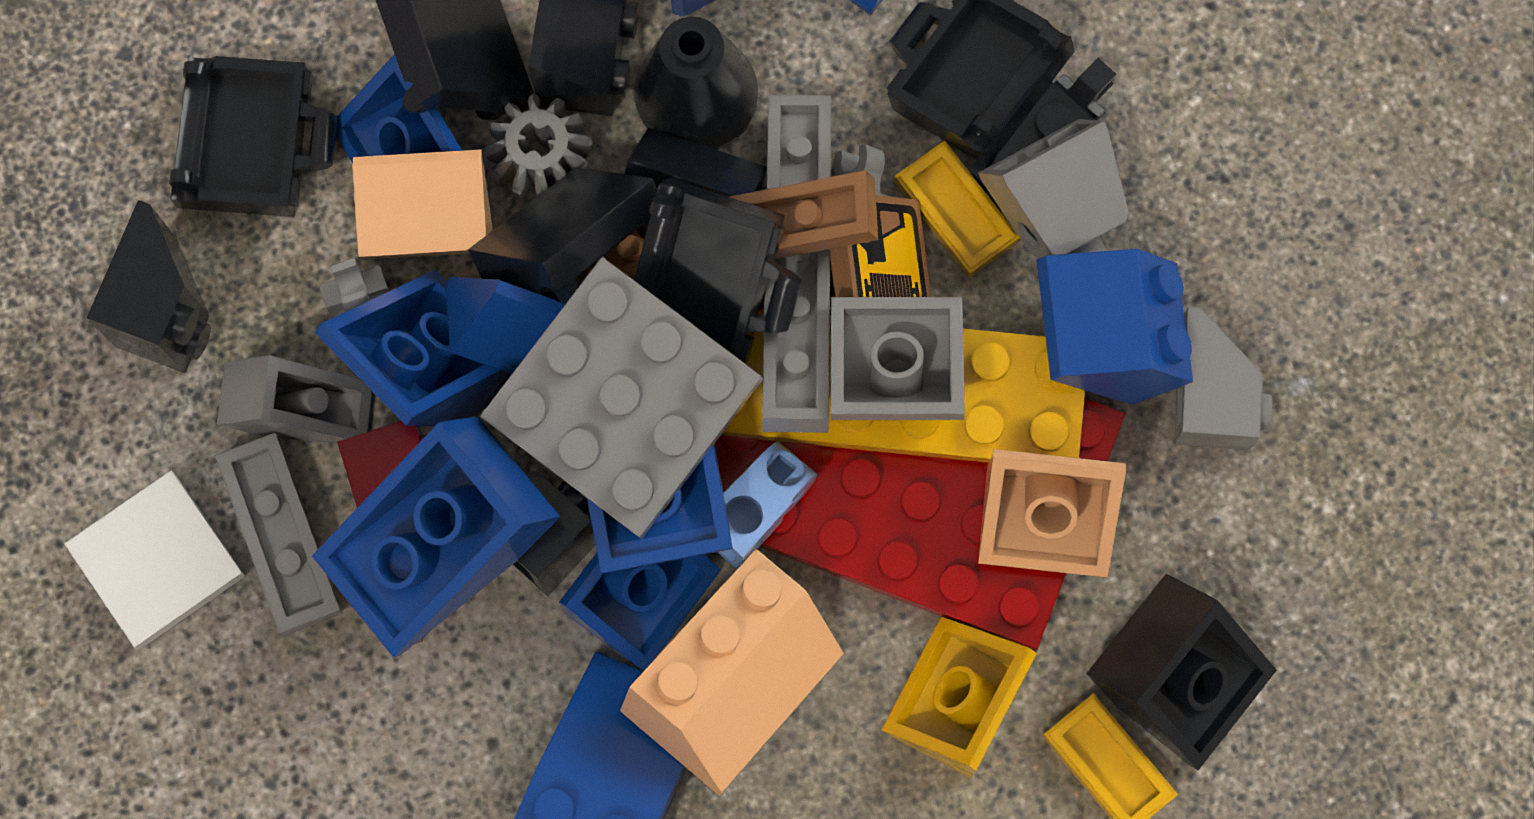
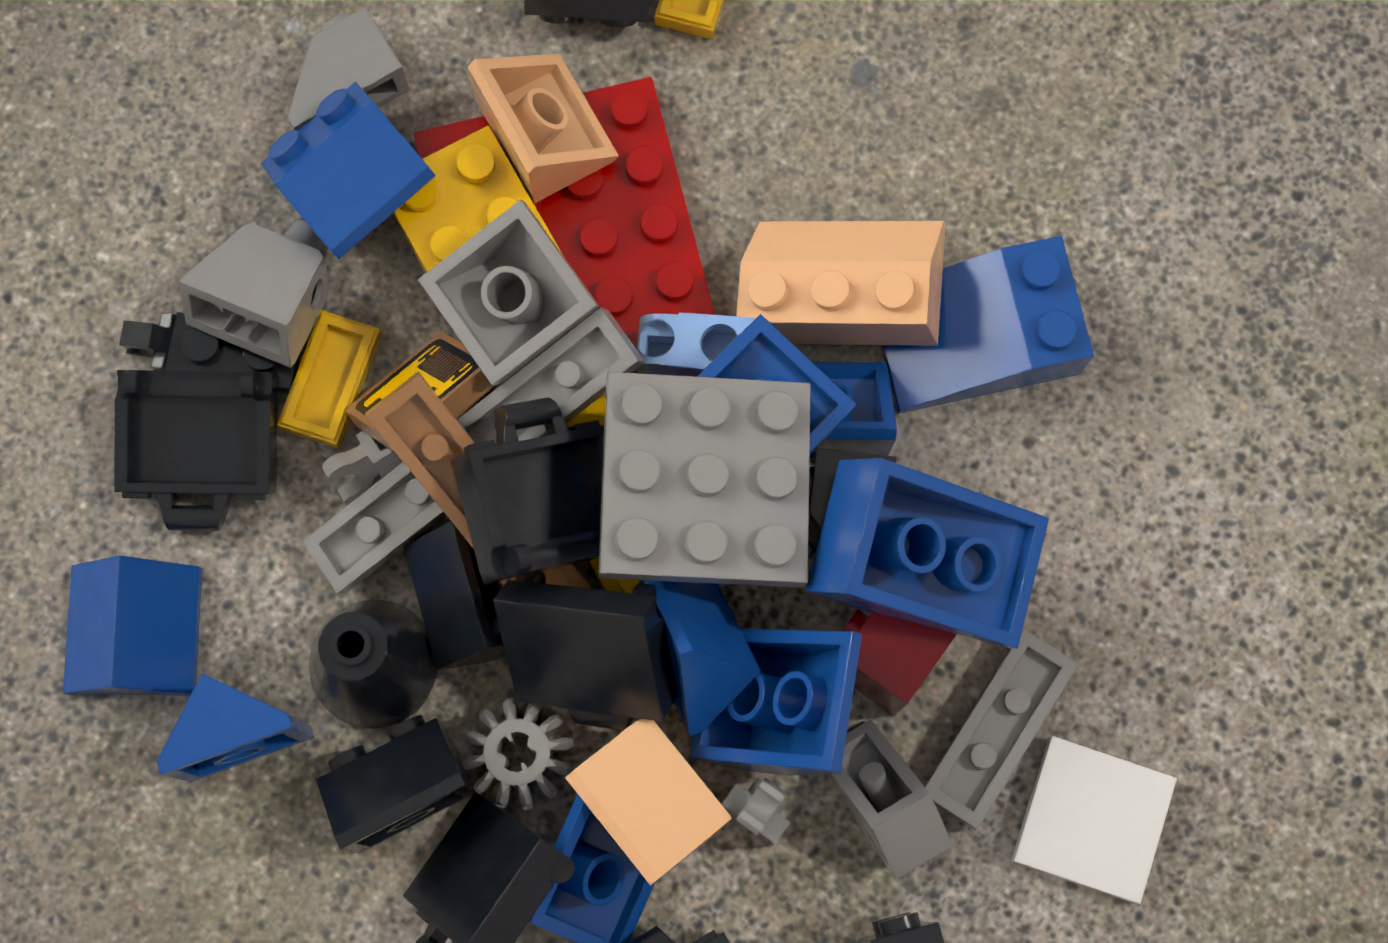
camera: 130 degrees left, 0 degrees up
(958, 694) = (730, 102): yellow slope -> none

